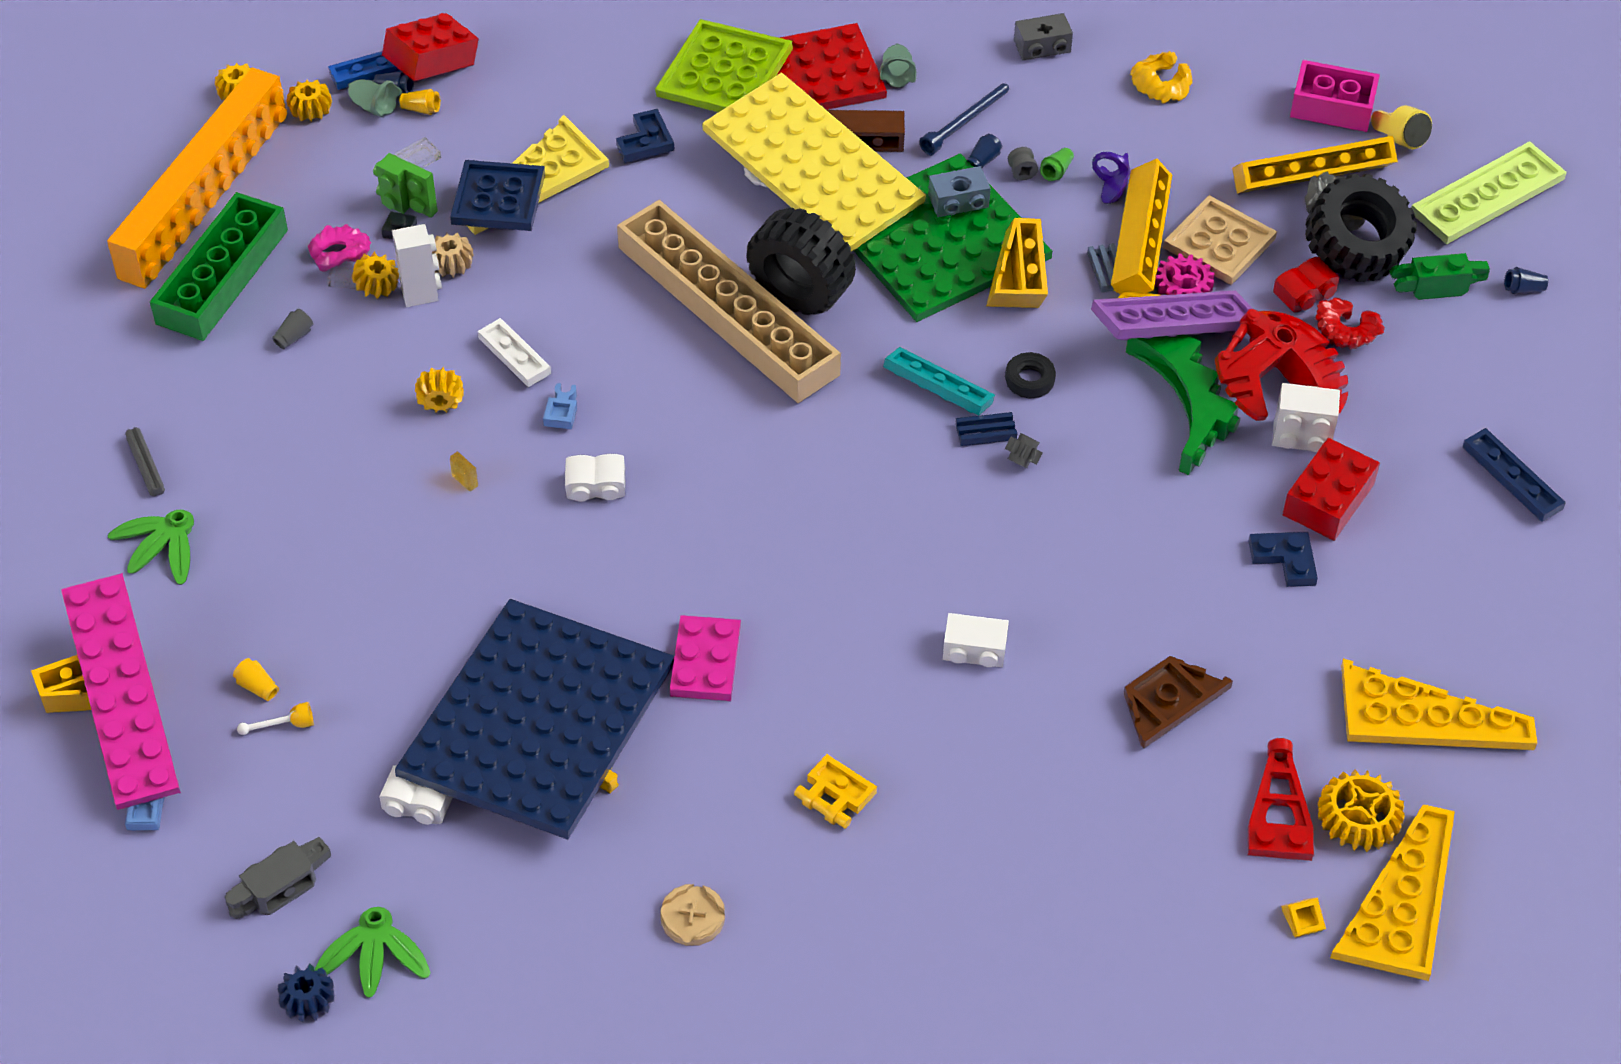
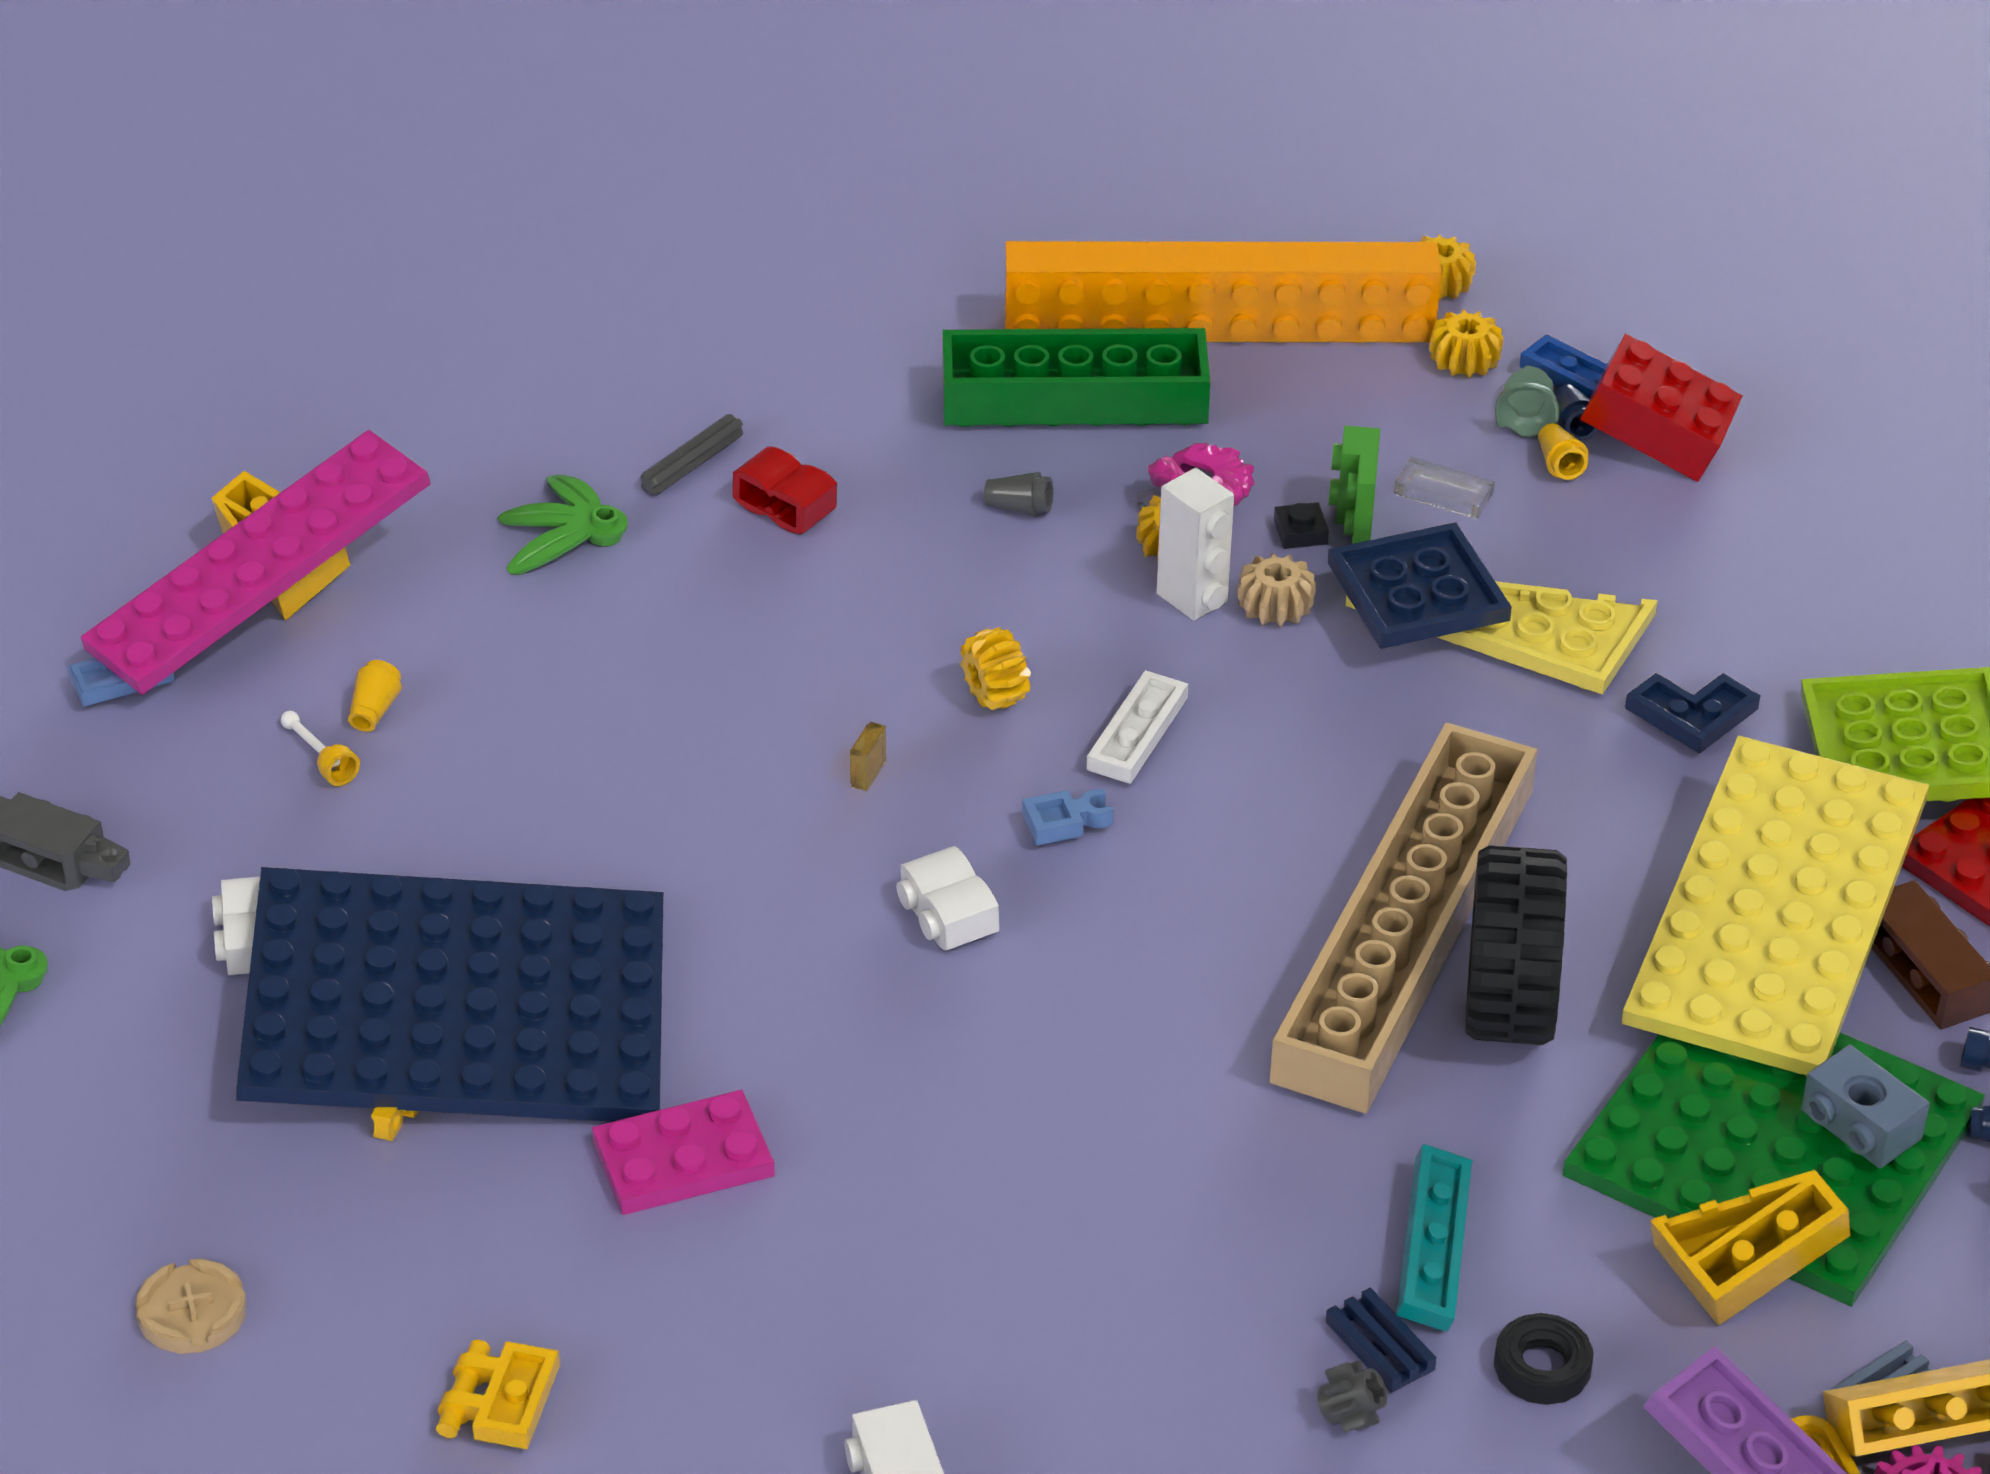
camera: 65 degrees right, 10 degrees down
(214, 428) = (784, 490): none -> red brick

